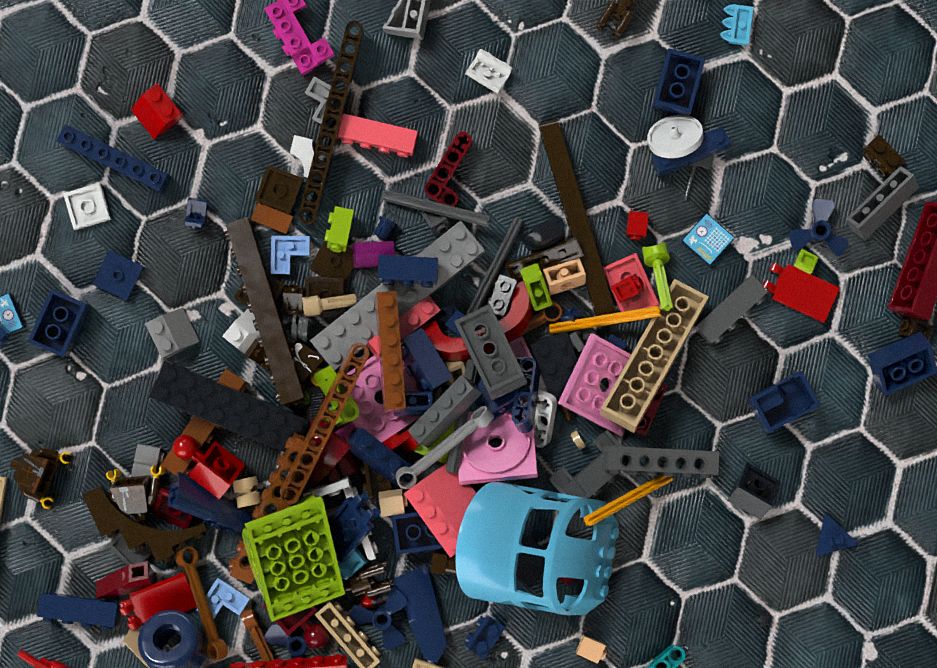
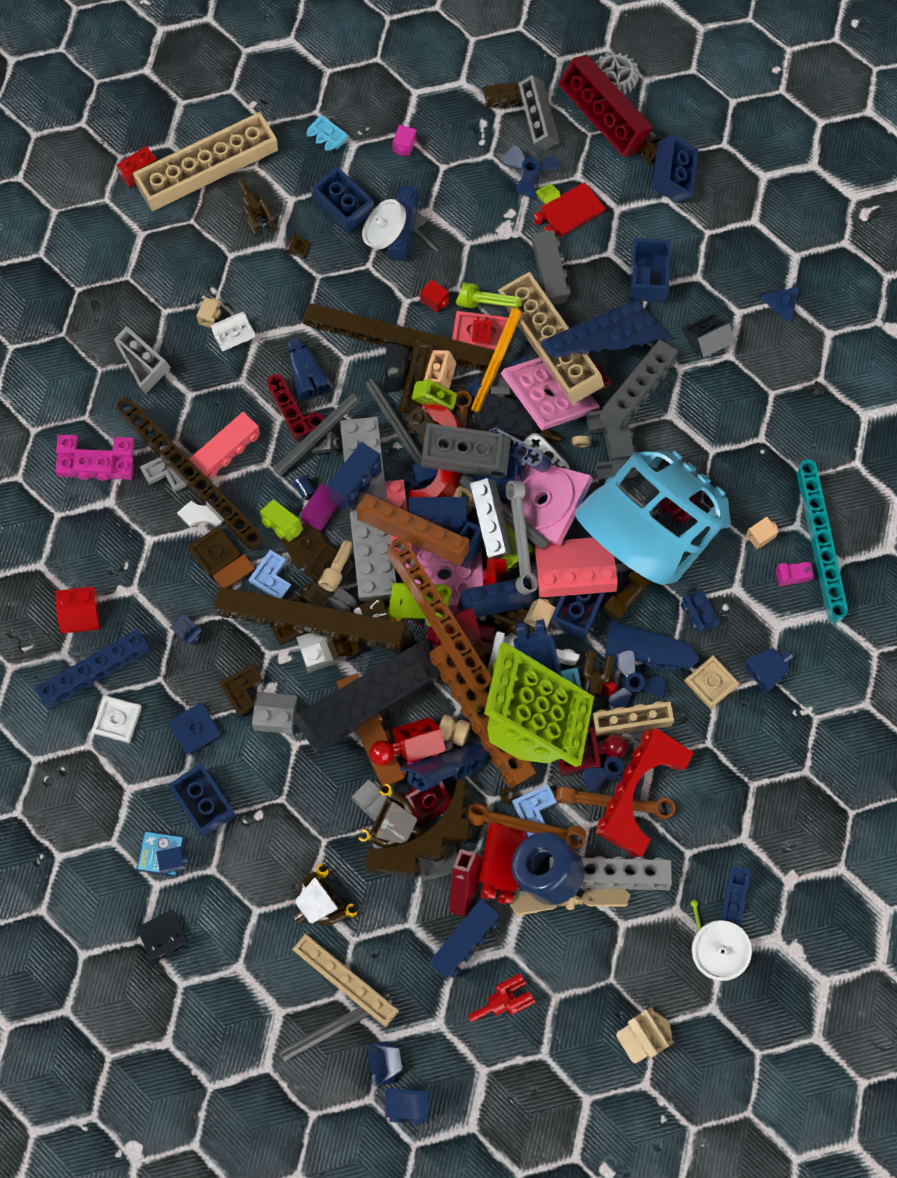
camera: 60 degrees left, 15 degrees down
(171, 288) = (237, 686): none -> dark brown plate
(224, 566) = (507, 800): none -> dark brown hinge
(493, 159) = (308, 375): none -> dark blue piece
(495, 38) = (209, 312): none -> tan brick
(609, 71) = (297, 246): none -> dark brown slope
(626, 499) = (655, 424): light orange axle -> none
(701, 410) = (610, 331): none -> dark blue wing
(707, 239) = (481, 253): medium azure tile -> none
(775, 98) = (404, 140): none -> dark pink brick

